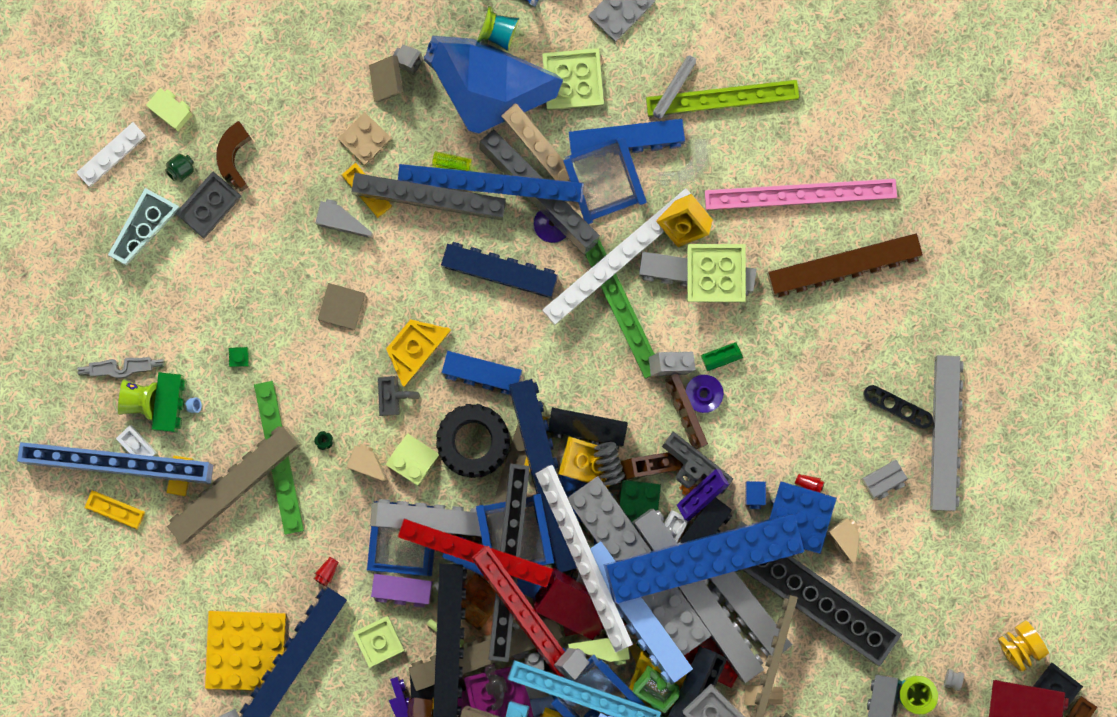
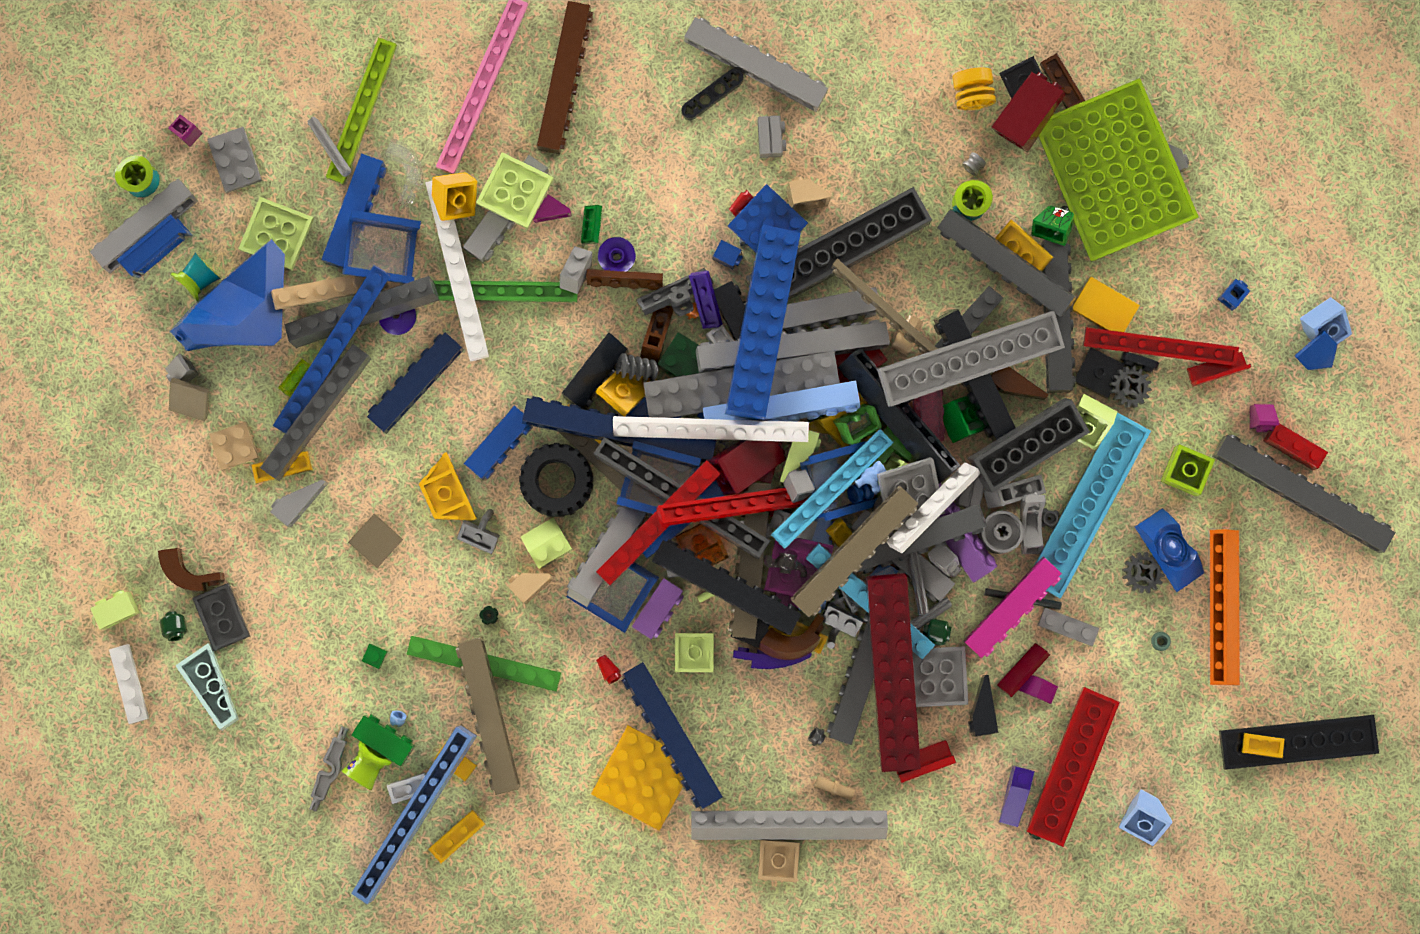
camera: 75 degrees left, 0 degrees up
(717, 313) = (551, 209): none -> magenta slope

